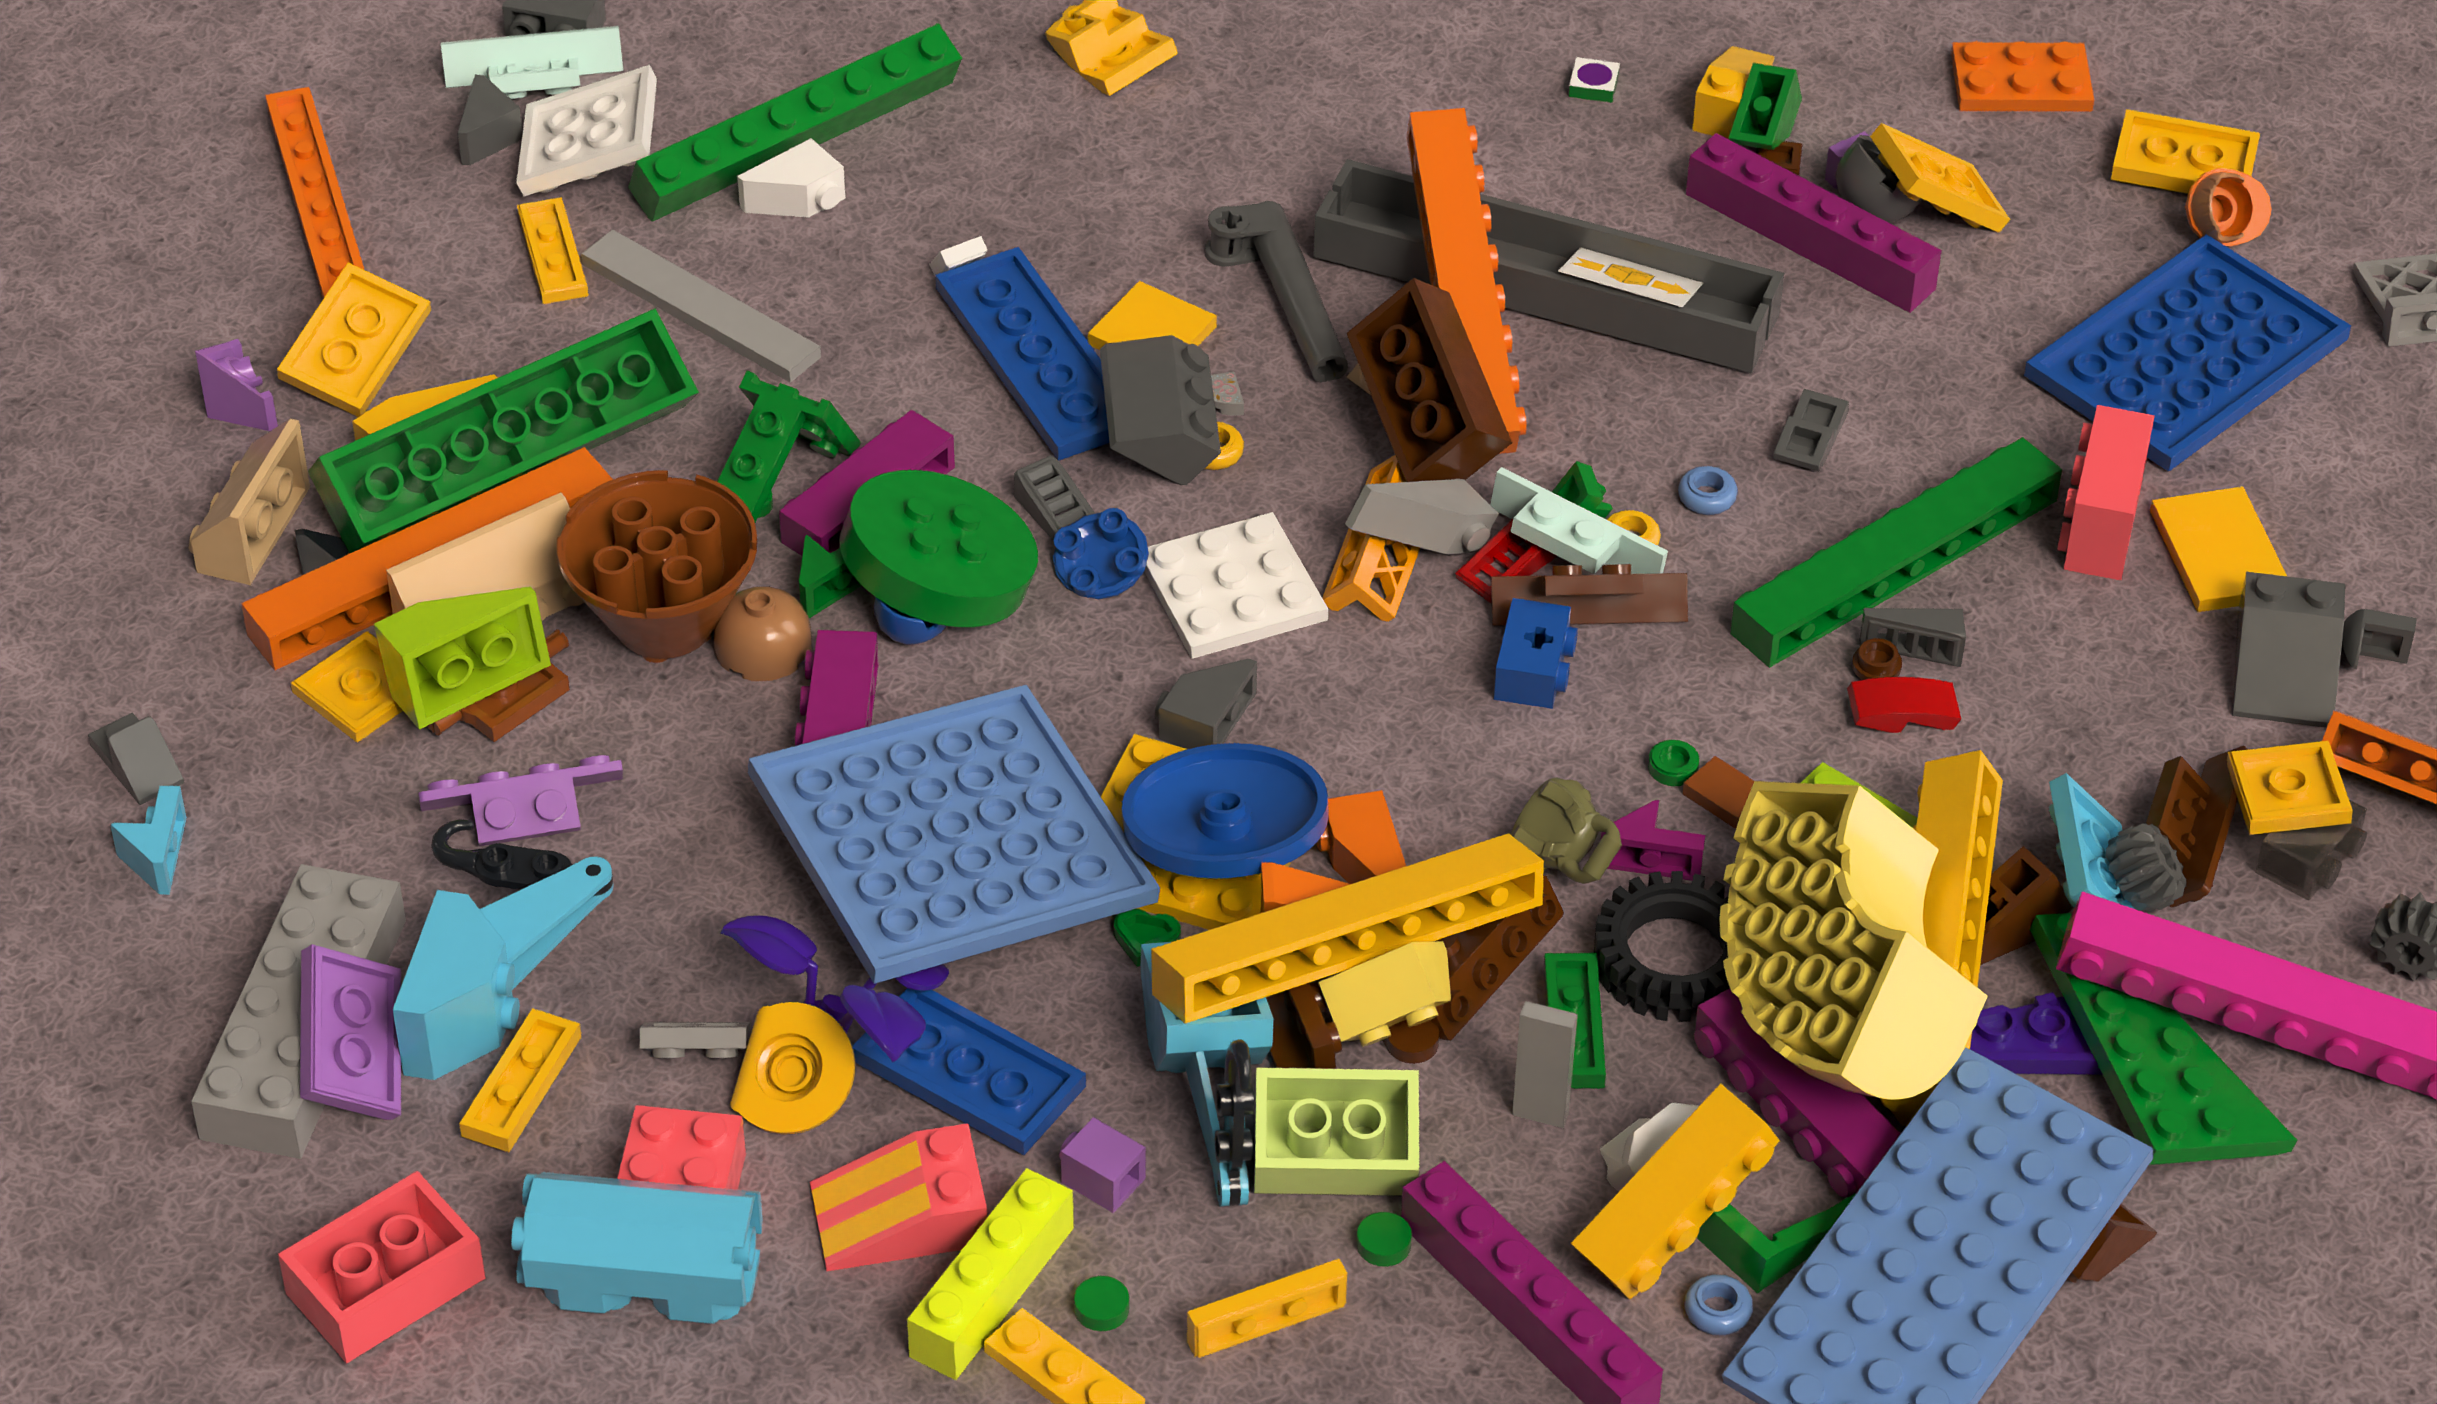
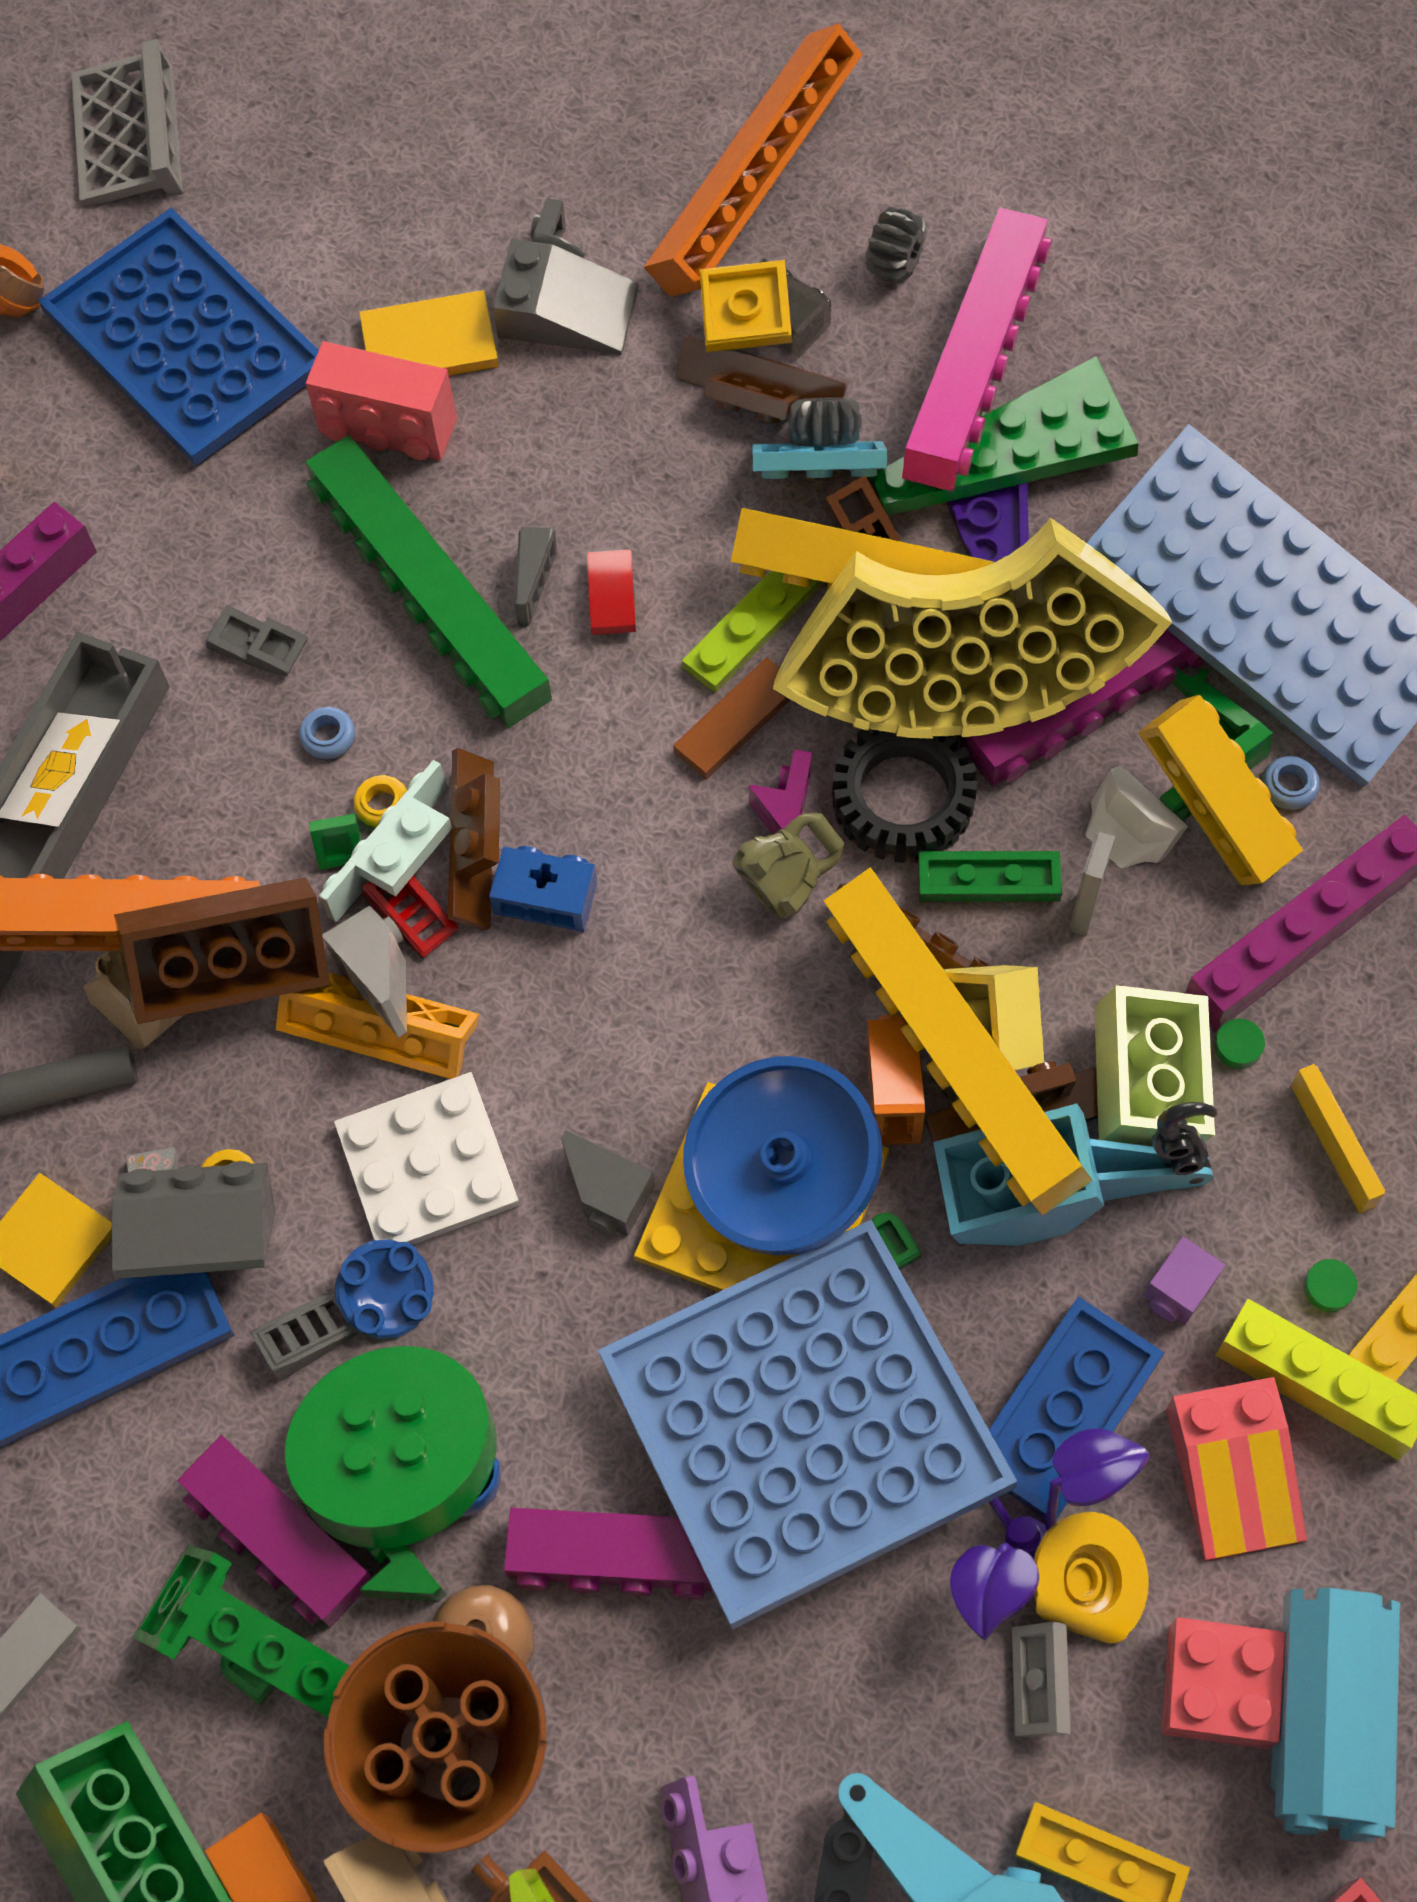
camera: 85 degrees left, 20 degrees up
(1361, 837) = (806, 1030): orange slope -> none
(1673, 762) = (673, 782): green tile -> none
(1877, 659) = (558, 610): reddish brown plate -> none

